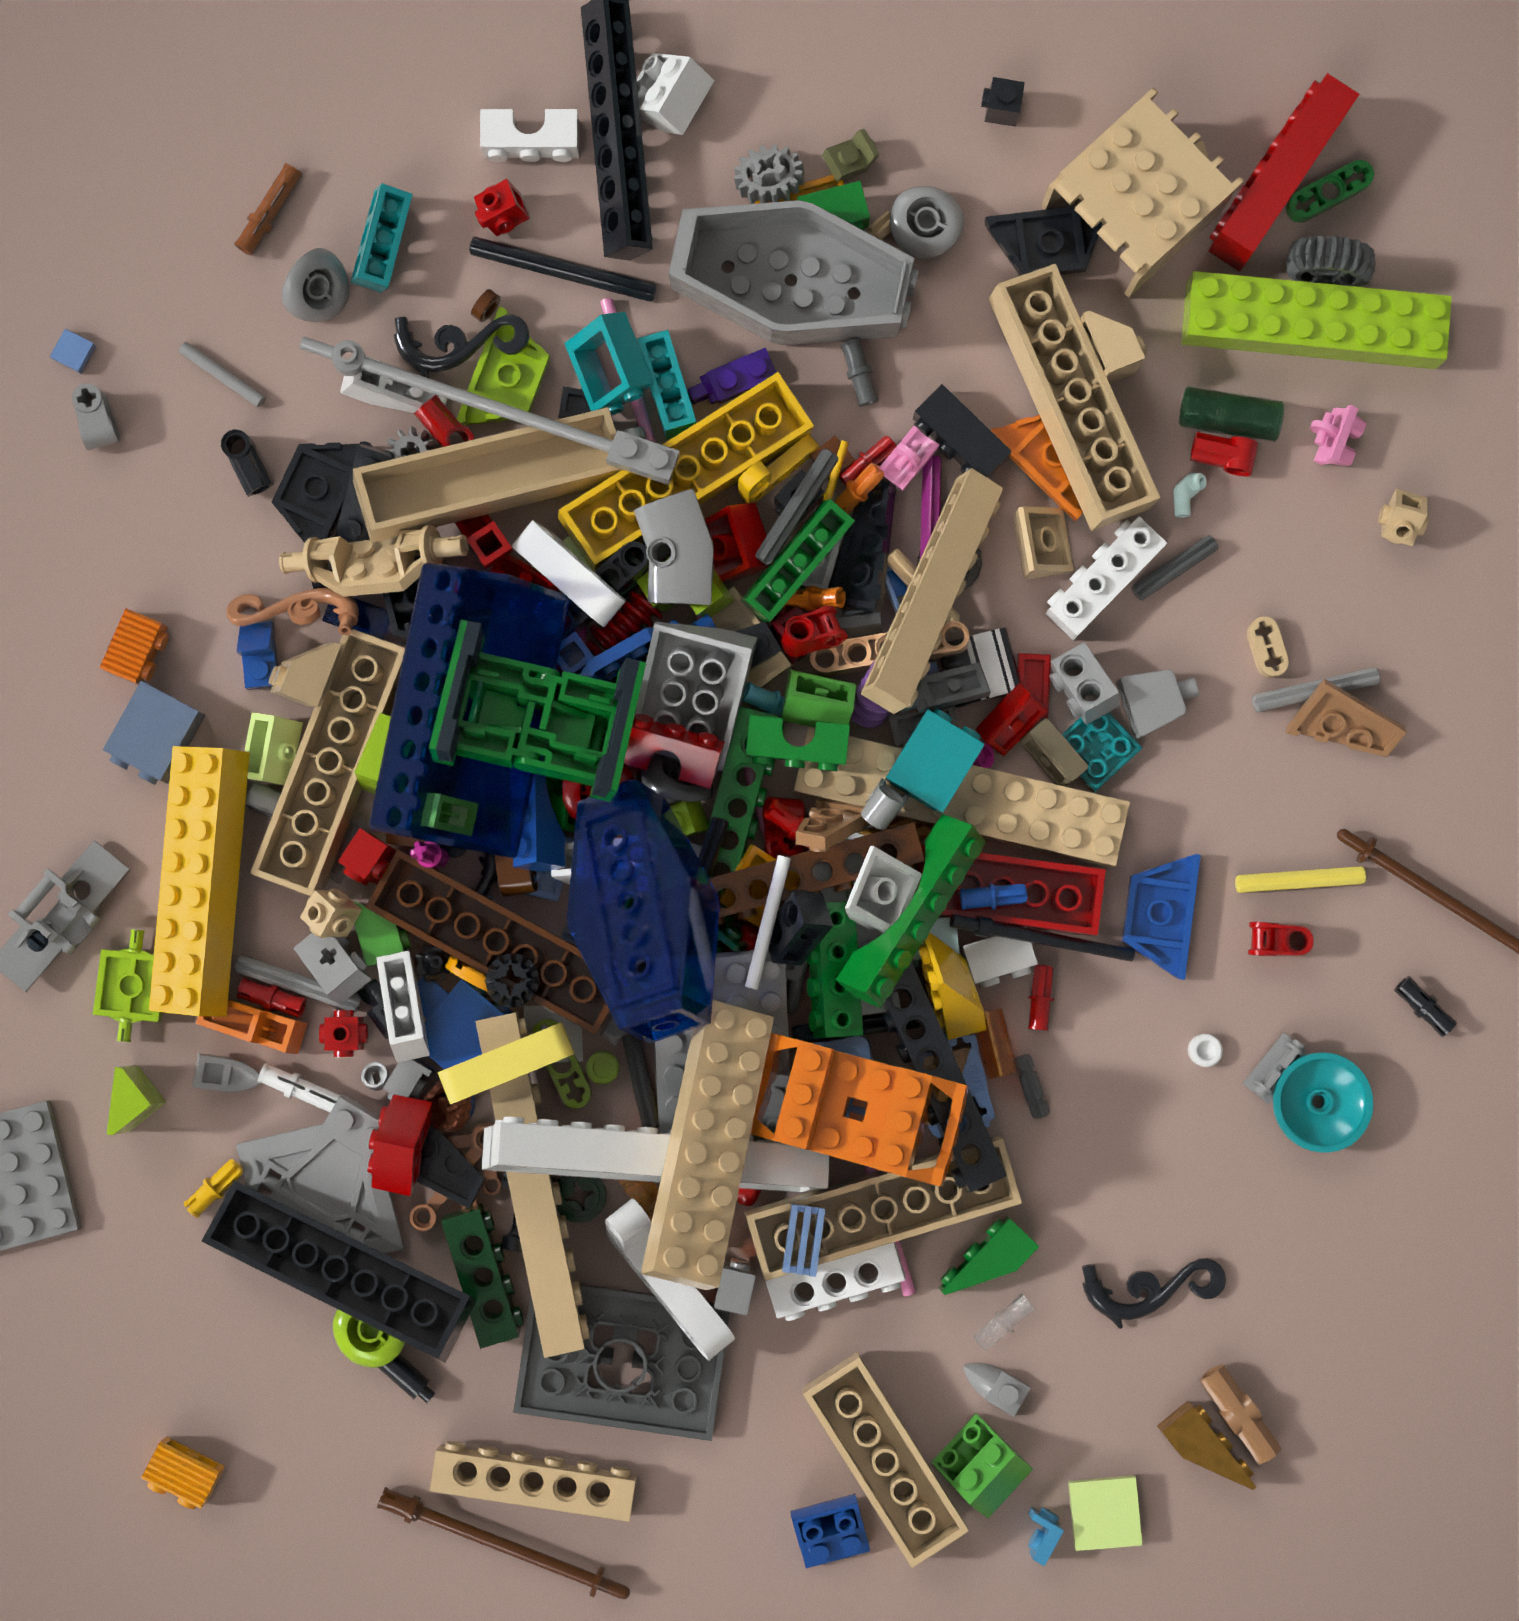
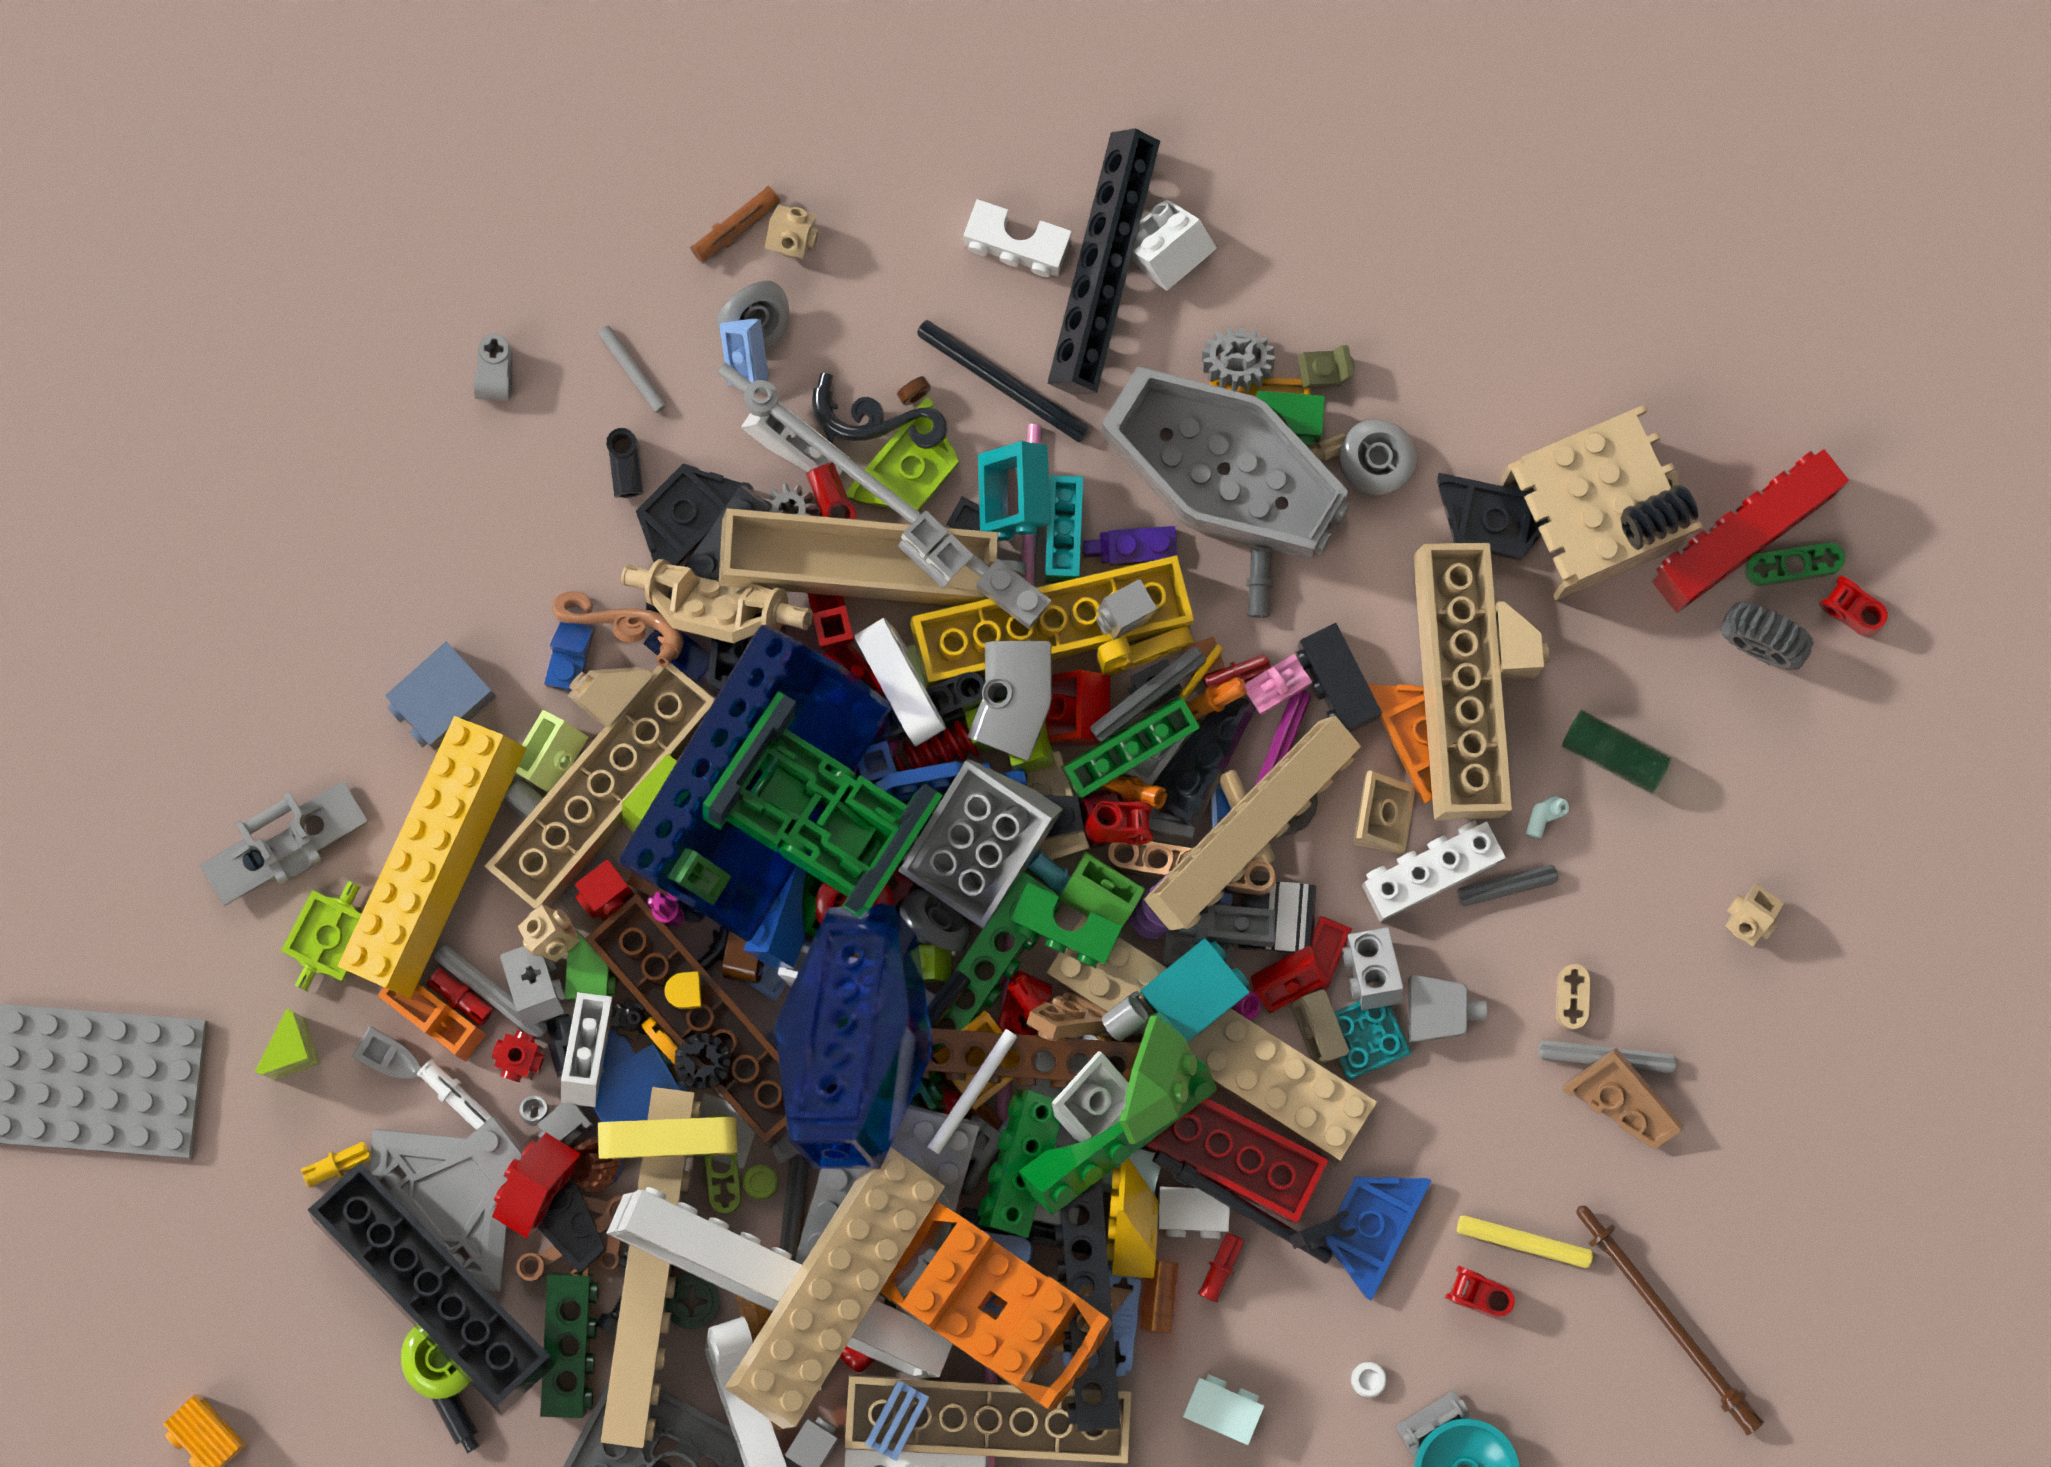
camera: 25 degrees right, 5 degrees down
(72, 351) = (495, 297): medium blue tile -> none
(135, 647) = (451, 606): orange brick -> none
(317, 318) = (745, 348): none -> light blue slope
(322, 197) = (791, 232): none -> tan brick
(381, 238) = (835, 291): teal brick -> none
(473, 922) = (684, 990): none -> yellow tile
(500, 208) = (962, 301): red brick -> none
(558, 446) = (927, 548): none -> light grey hips
(697, 752) = (963, 901): red arch -> none
(751, 436) = (1125, 610): none -> light grey brick
(799, 927) = (1001, 1108): black brick -> none
(934, 853) = (1157, 1080): none -> bright green wedge
(993, 896) = (1206, 1146): blue axle -> none
(1003, 101) = (1496, 365): black brick -> none
(1031, 1086) = (1180, 1353): dark grey axle -> none
(1088, 1123) = (1224, 1410): none -> light aqua hinge
(1116, 940) = (1315, 1235): none -> black plate
(1205, 182) = (1658, 516): none -> black piece
(1232, 454) = (1605, 793): red piece -> none
(1316, 320) = (1734, 688): lime brick -> none
(1333, 435) = (1711, 808): bright pink hips -> none
(1395, 210) = (1852, 606): none -> red piece
(1425, 1006) = (1606, 1414): black pin -> none

